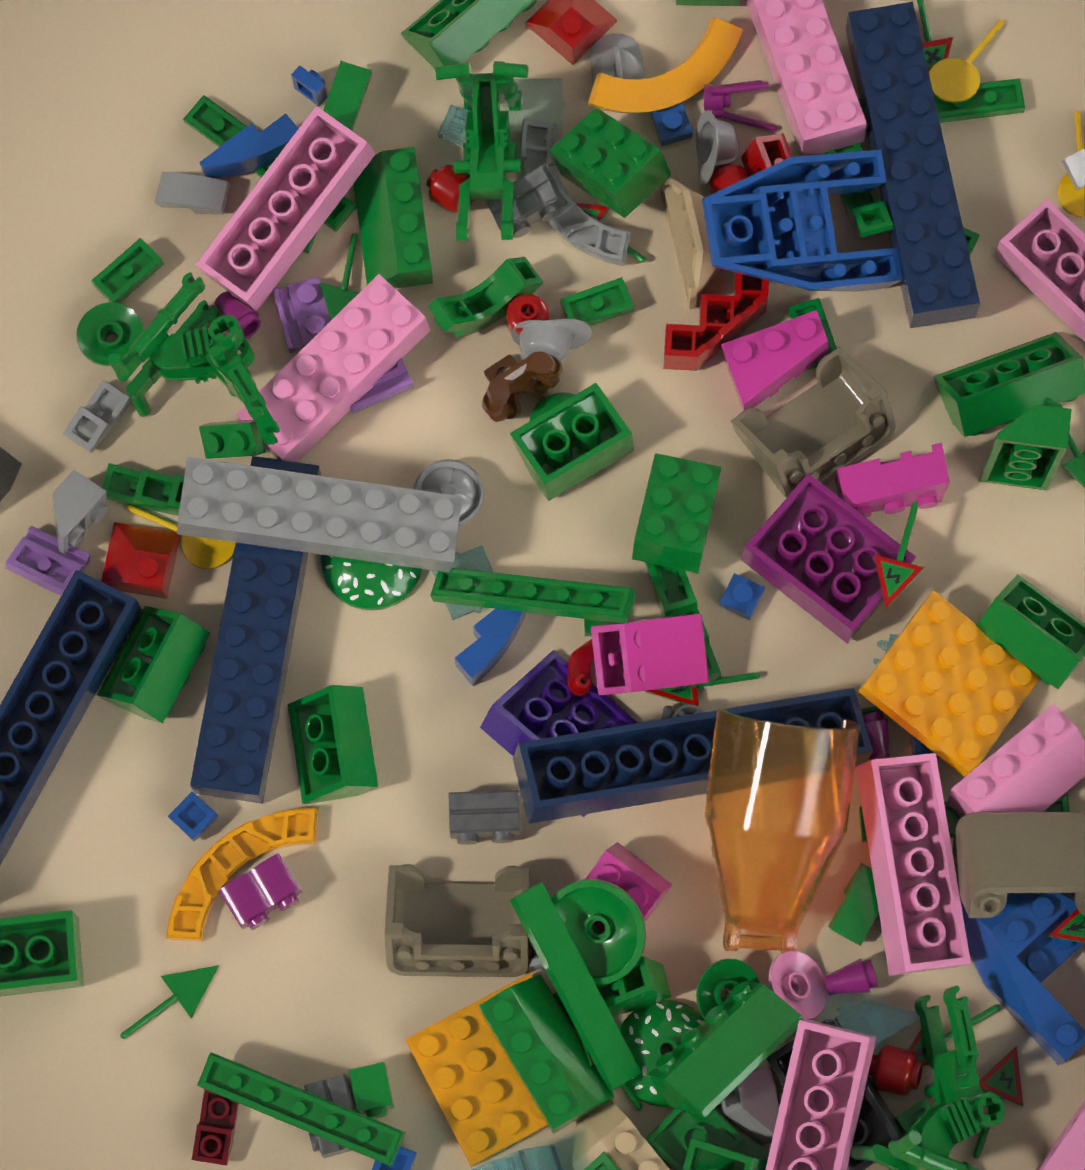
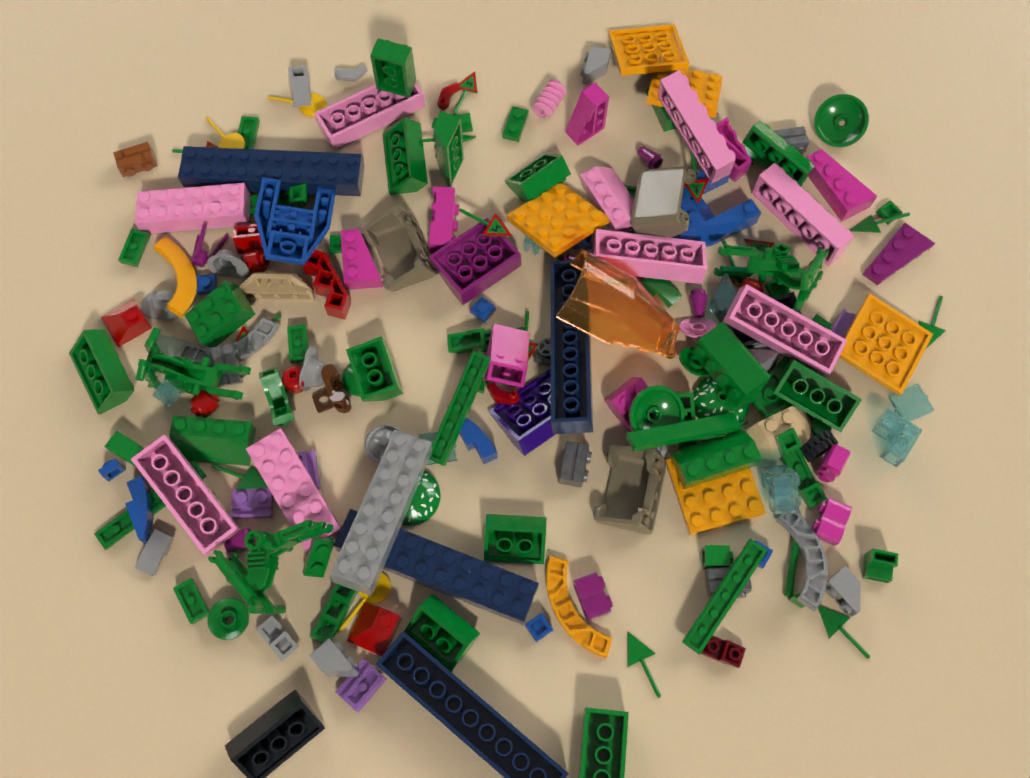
camera: 80 degrees left, 5 degrees down
(676, 513) = (431, 327): green brick -> none

